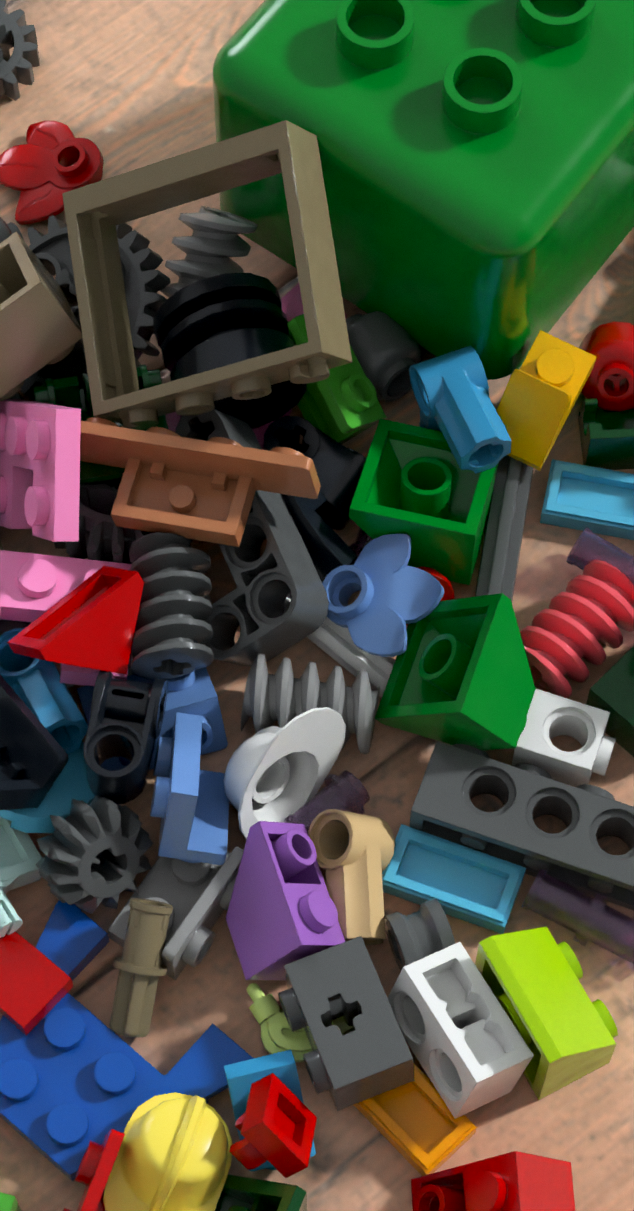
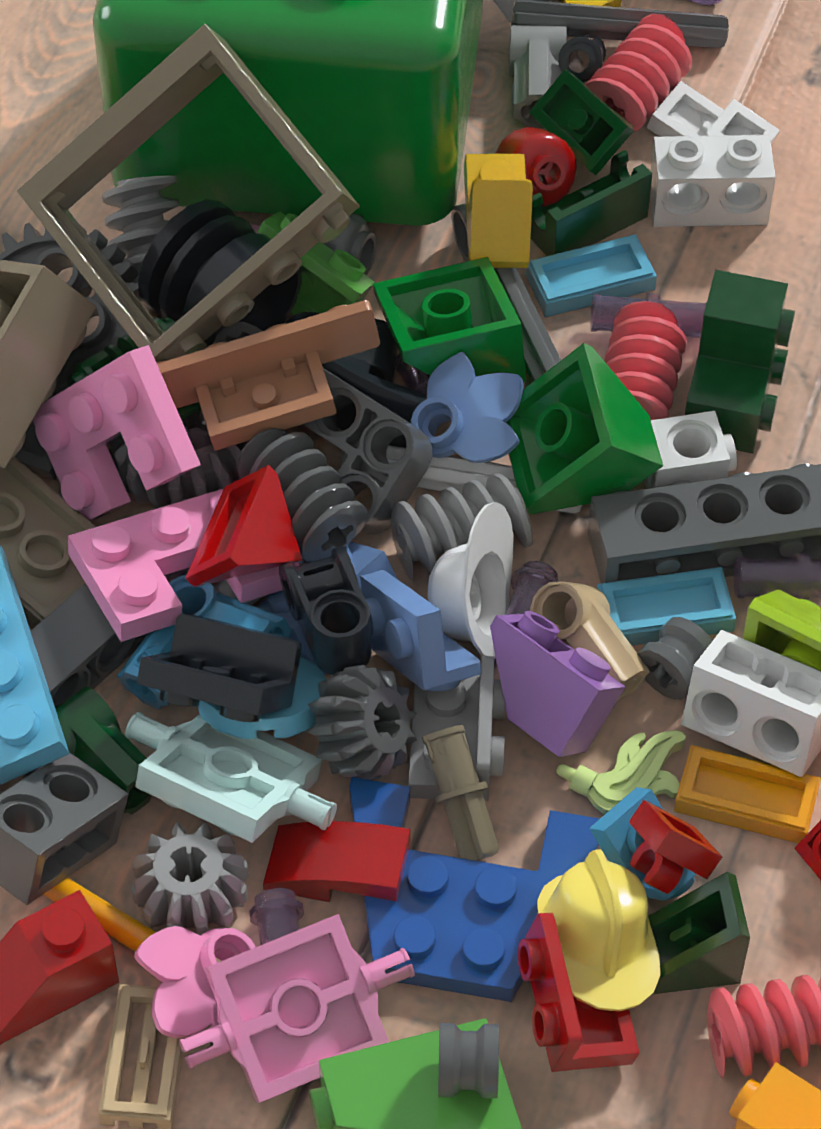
camera: 30 degrees left, 10 degrees down
(346, 985) = (670, 743): dark grey brick -> none
(456, 400) = (431, 235): dark azure piece -> none

